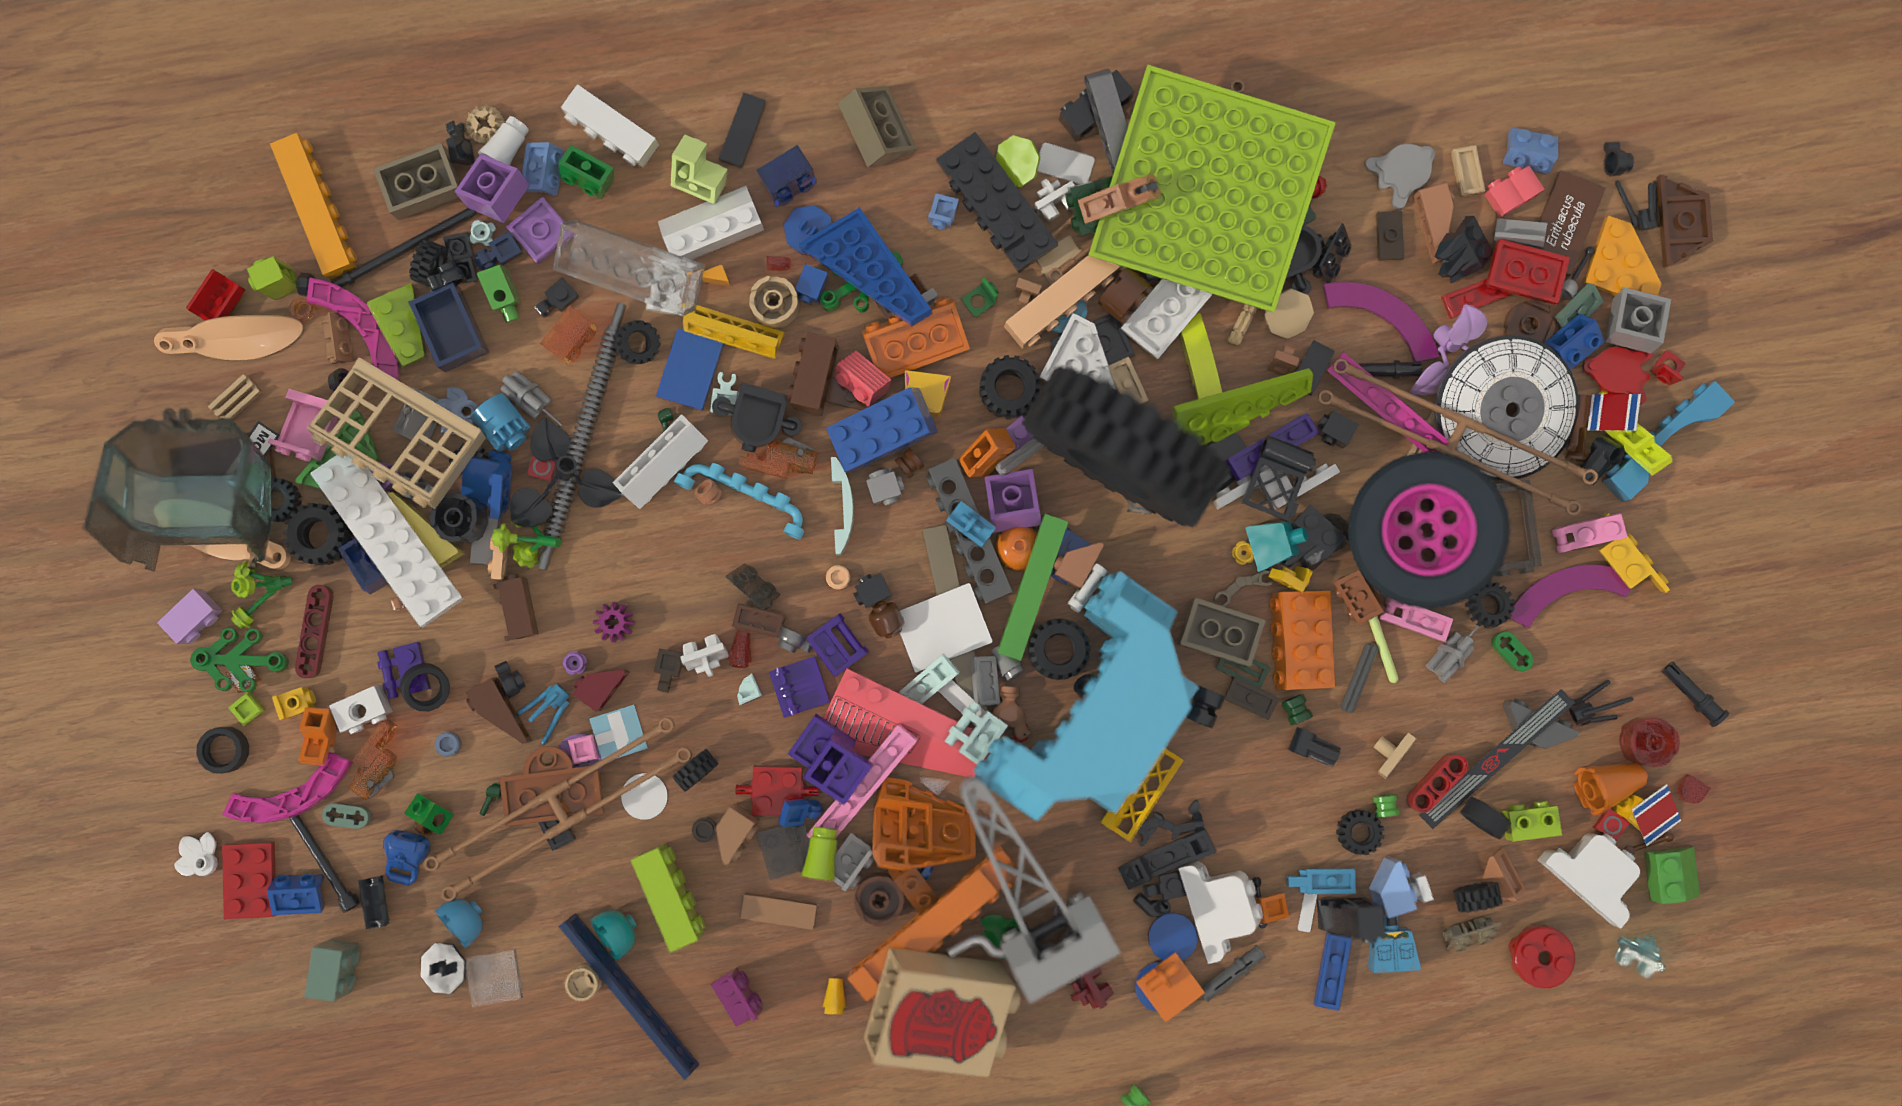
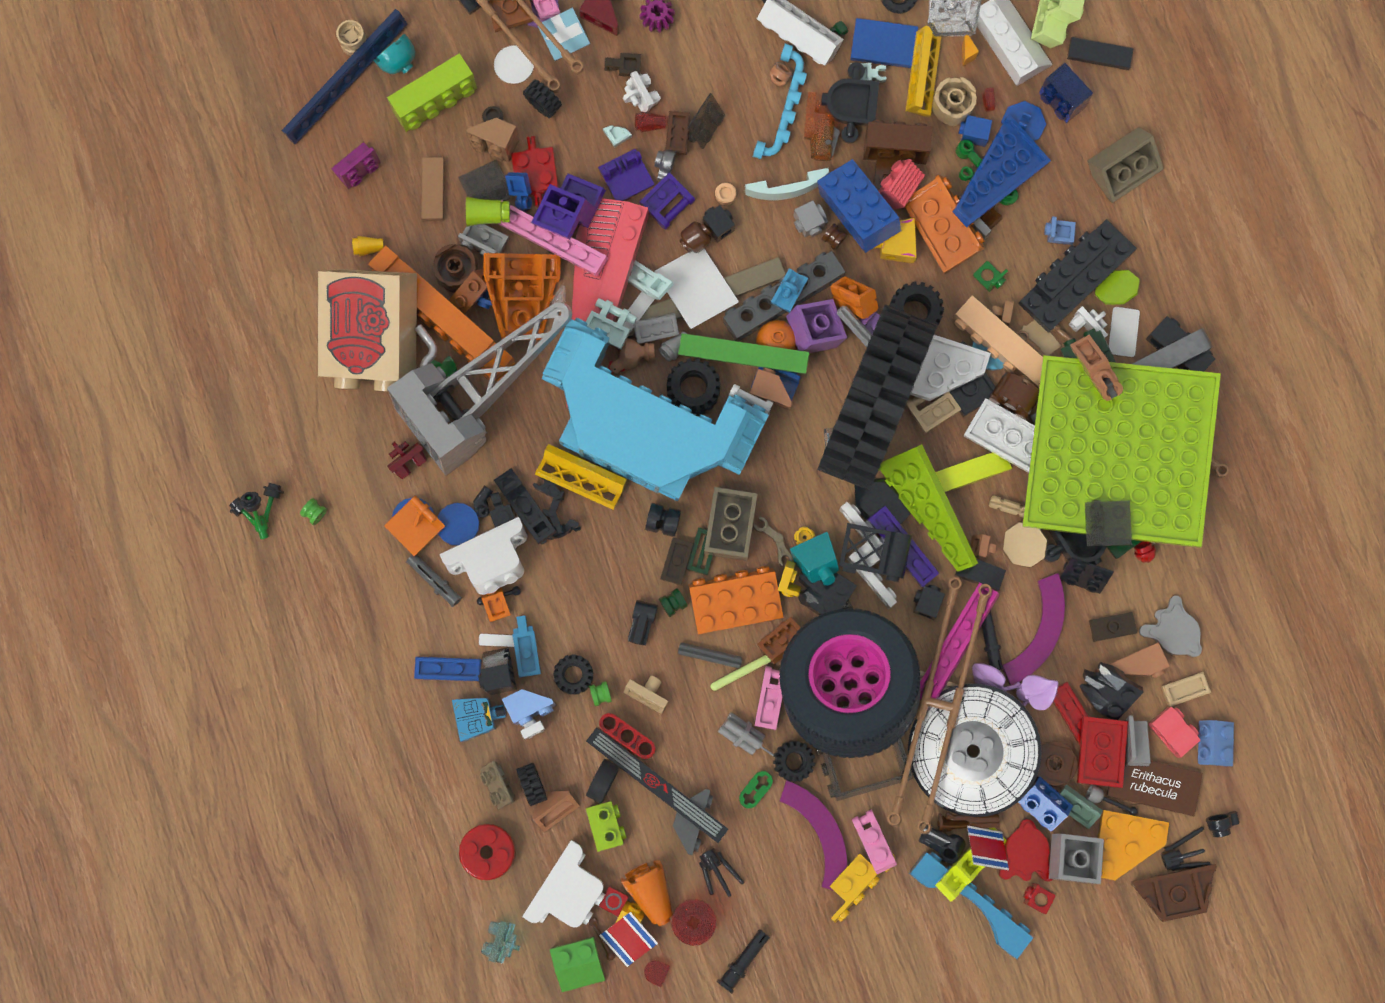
camera: 80 degrees right, 5 degrees down
(1292, 218) = (1108, 523): none -> clear smoke hinge

